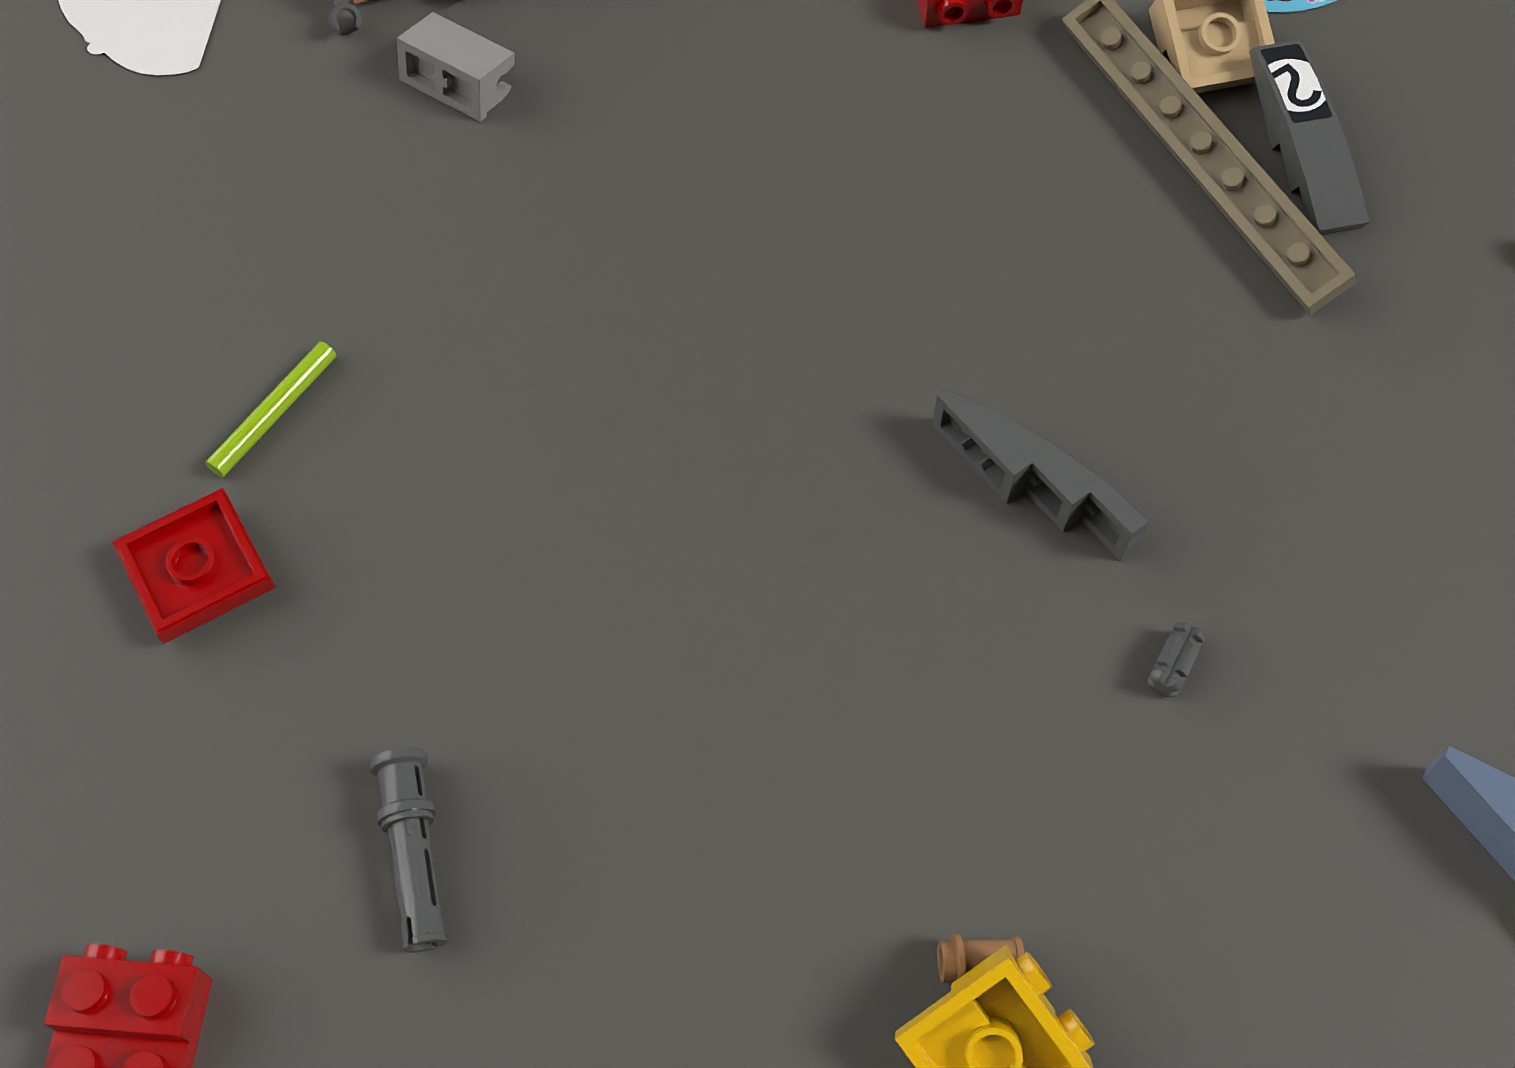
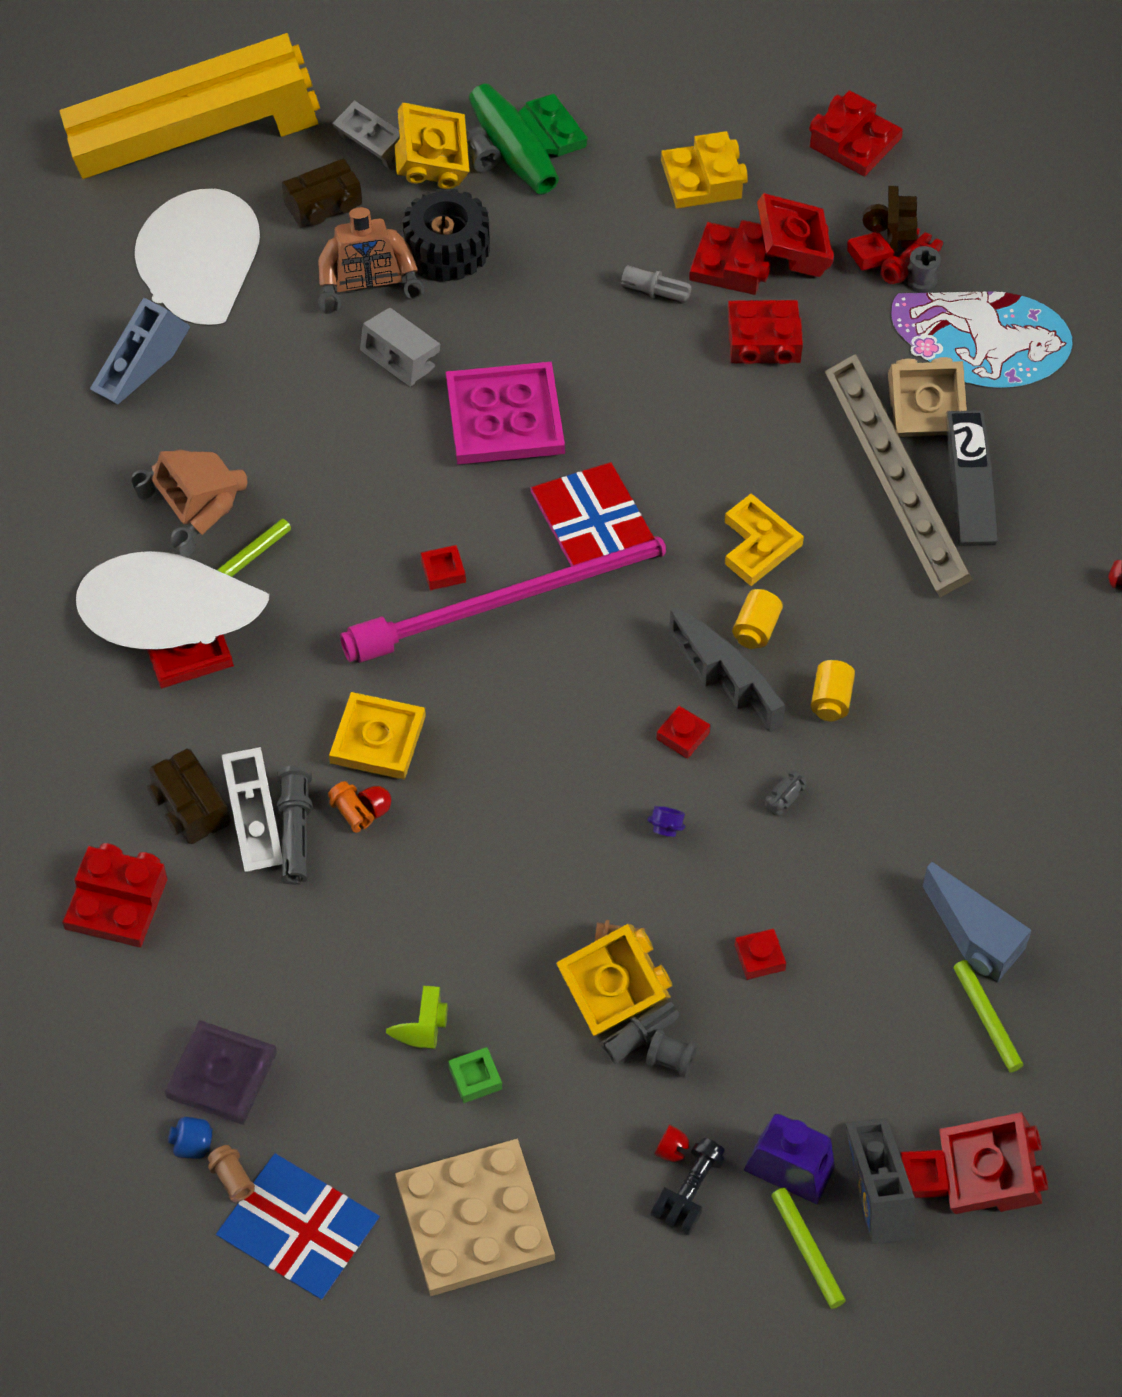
camera: 10 degrees right, 5 degrees down
(75, 120) = (141, 350): none -> sand blue slope
(151, 502) = (164, 601): none -> white sticker
(179, 316) = (196, 489): none -> nougat torso
(227, 829) = (189, 797): none -> dark brown brick
(336, 834) = (252, 809): none -> white slope
(497, 798) = (350, 806): none -> orange pin
(521, 670) = (377, 735): none -> yellow plate
(536, 783) = (376, 800): none -> red hinge
(577, 380) = (443, 567): none -> red plate
(625, 139) = (505, 413): none -> dark pink plate
(786, 284) = (591, 522): none -> flag
(994, 584) = (683, 732): none -> red plate
(1008, 739) = (667, 820): none -> dark purple plate
(1044, 265) = (766, 543): none -> yellow plate
(1063, 388) = (757, 619): none -> yellow brick
(1204, 482) = (832, 690): none -> yellow brick
(1210, 946) = (760, 954): none -> red plate

